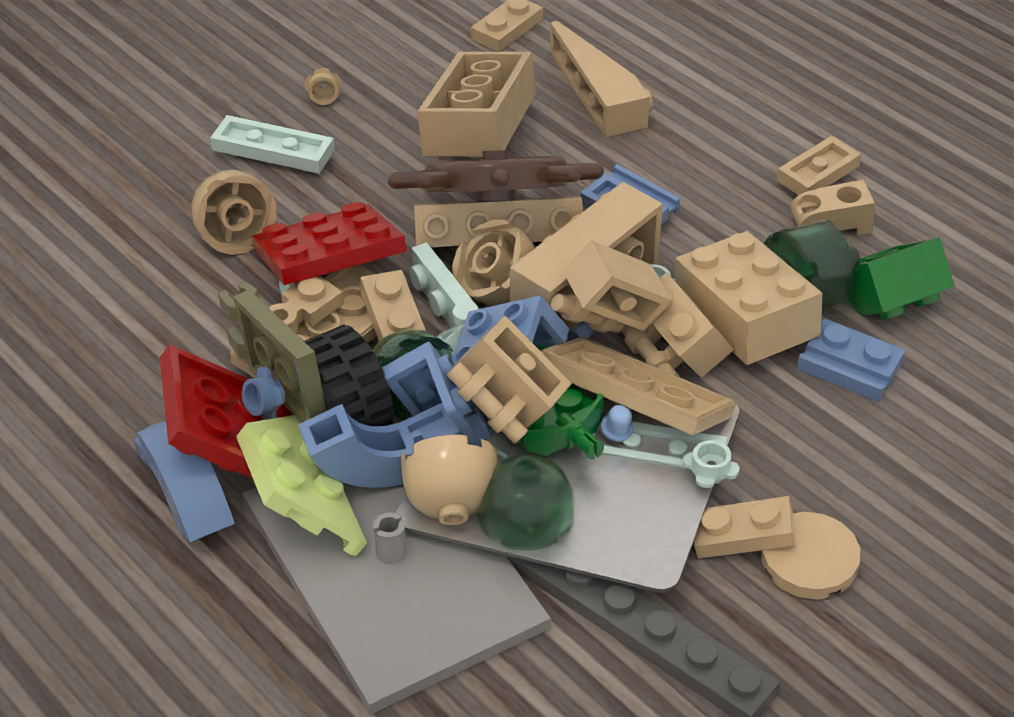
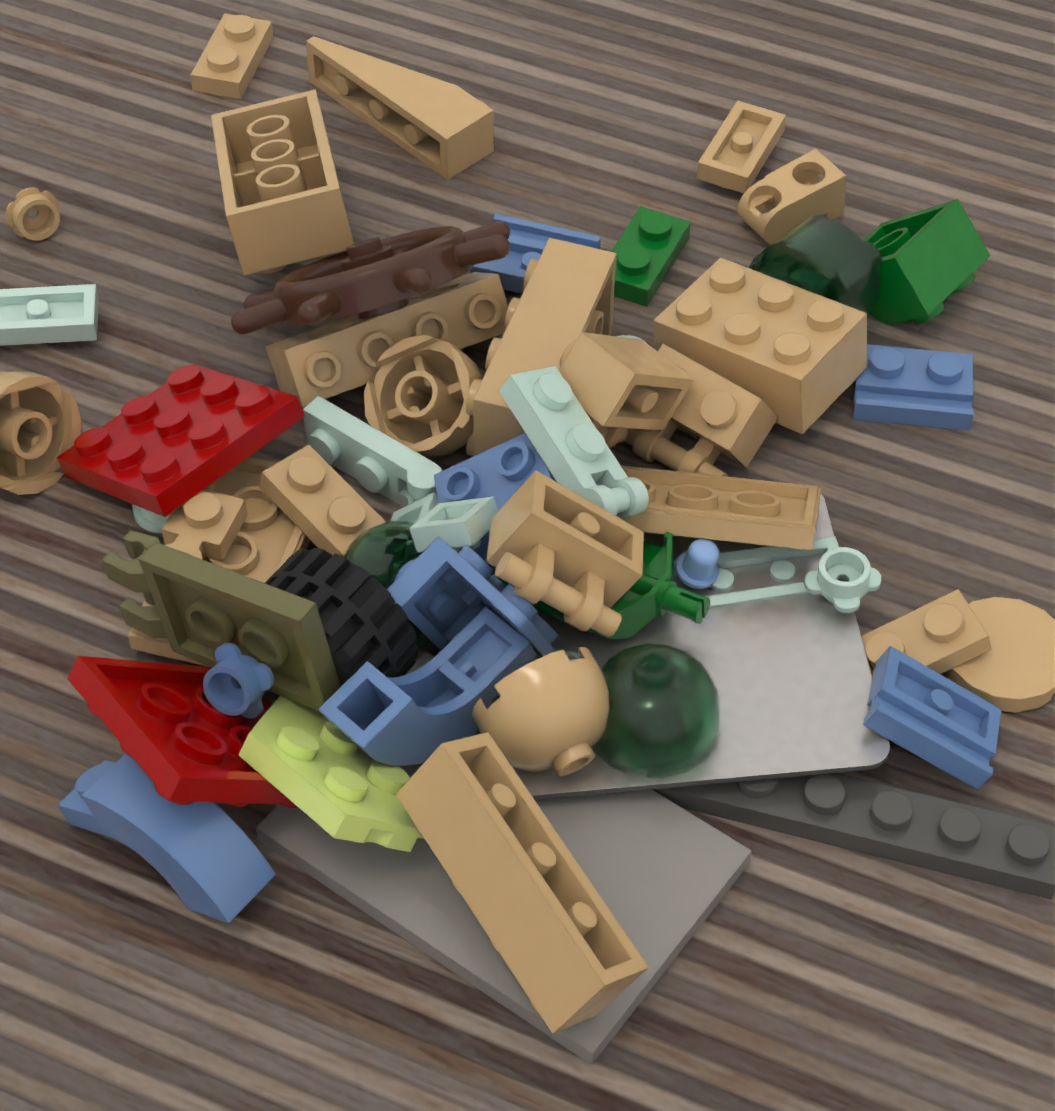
camera: 25 degrees left, 5 degrees up
(367, 574) = (520, 881): none -> tan brick
(453, 340) = (456, 523): none -> light aqua plate
(554, 312) = (571, 442): none -> light aqua plate
(708, 220) = (647, 254): none -> green plate
(723, 574) = (933, 717): none -> medium blue plate

